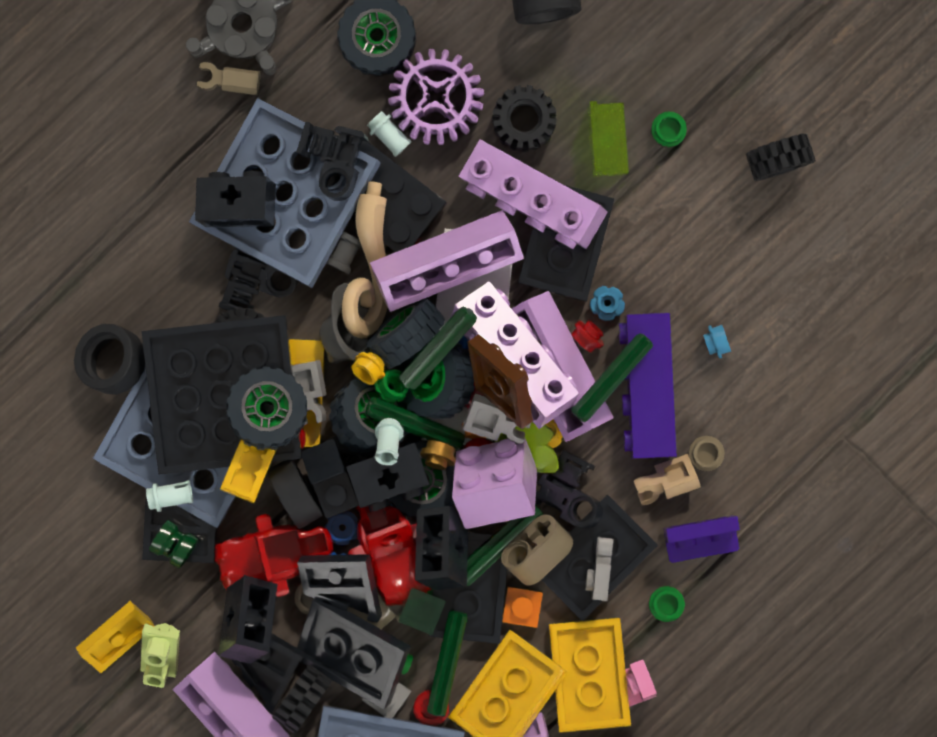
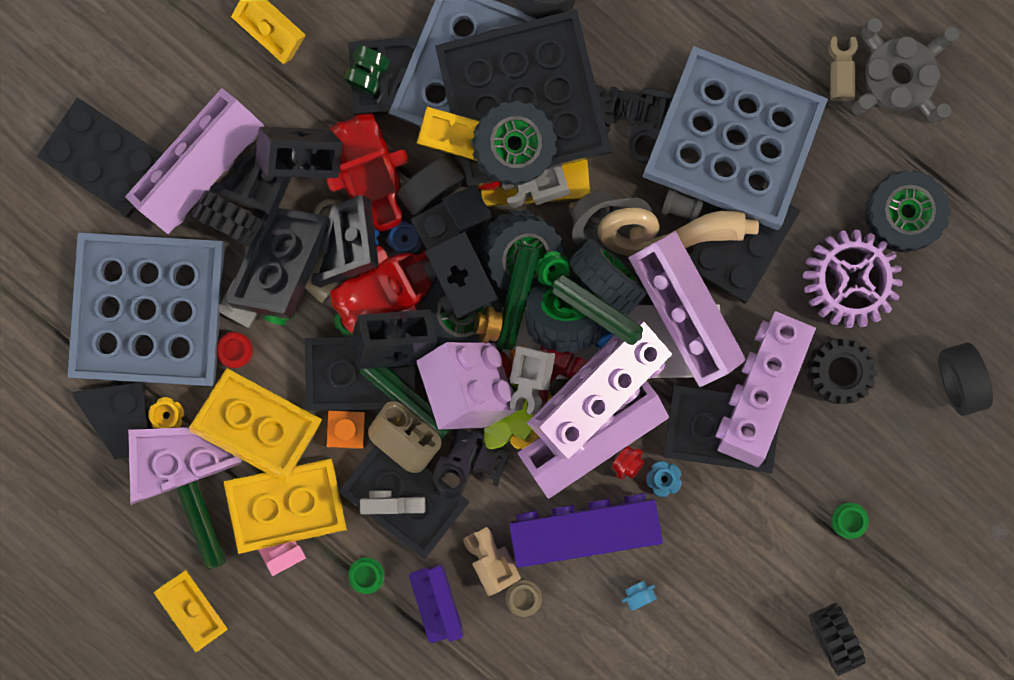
camera: 85 degrees right, 0 degrees up
(159, 653) = (256, 71): yellowish green hips -> none
(169, 495) = (415, 59): light aqua pin -> none
(253, 208) = (714, 105): black brick -> none
(339, 149) = (787, 186): black piece -> none
(368, 367) = (568, 242): yellow plate -> none
(388, 133) = (808, 235): light aqua pin -> none
(389, 434) = (503, 270): light aqua pin -> none
(421, 610) = (328, 326): clear green panel -> none
(447, 663) = (280, 359): dark green axle -> none
(501, 380) = (571, 377): reddish brown plate -> none
(607, 139) = (831, 459): clear neon green panel -> none
(612, 377) = (588, 492): dark green axle -> none

